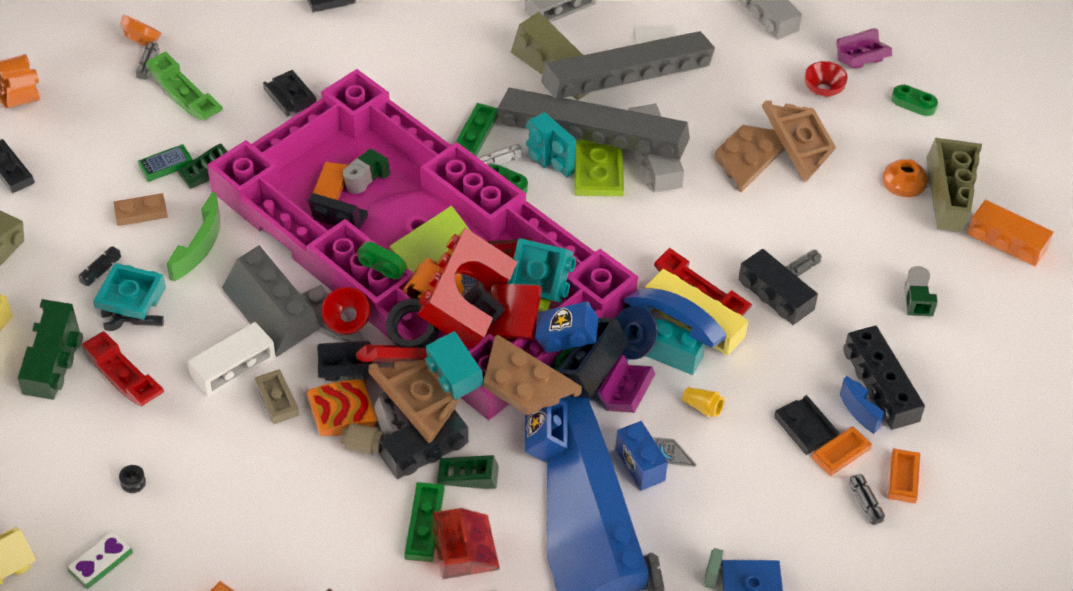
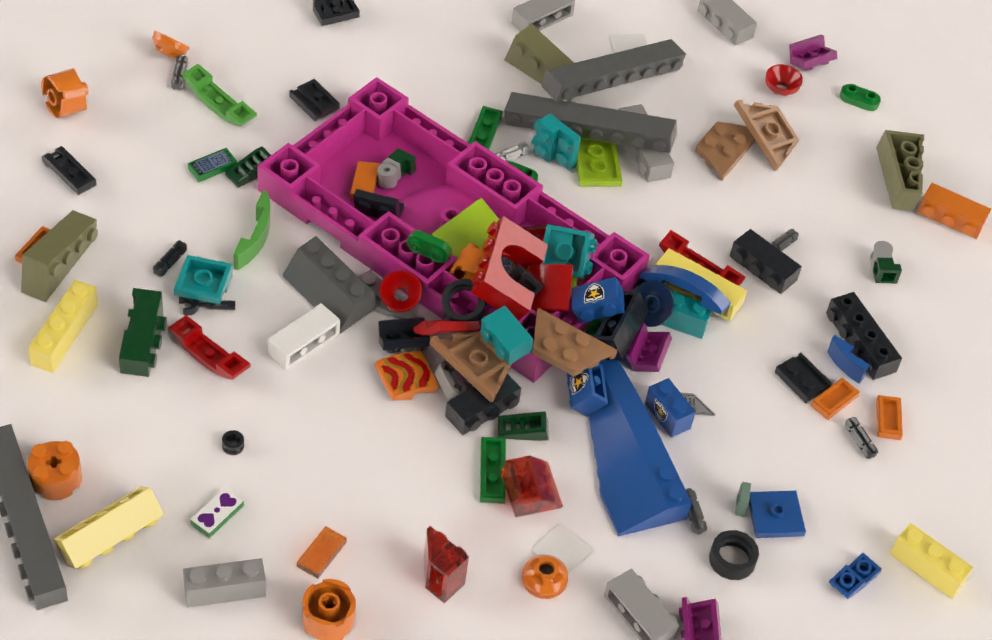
camera: 10 degrees left, 0 degrees up
(140, 209) = (197, 207): medium nougat plate -> none
(276, 396) = (348, 367): dark tan plate -> none
(362, 439) = (429, 401): dark tan brick -> none
(705, 401) = (716, 360): yellow cone -> none
(904, 183) = (857, 169): orange piece -> none

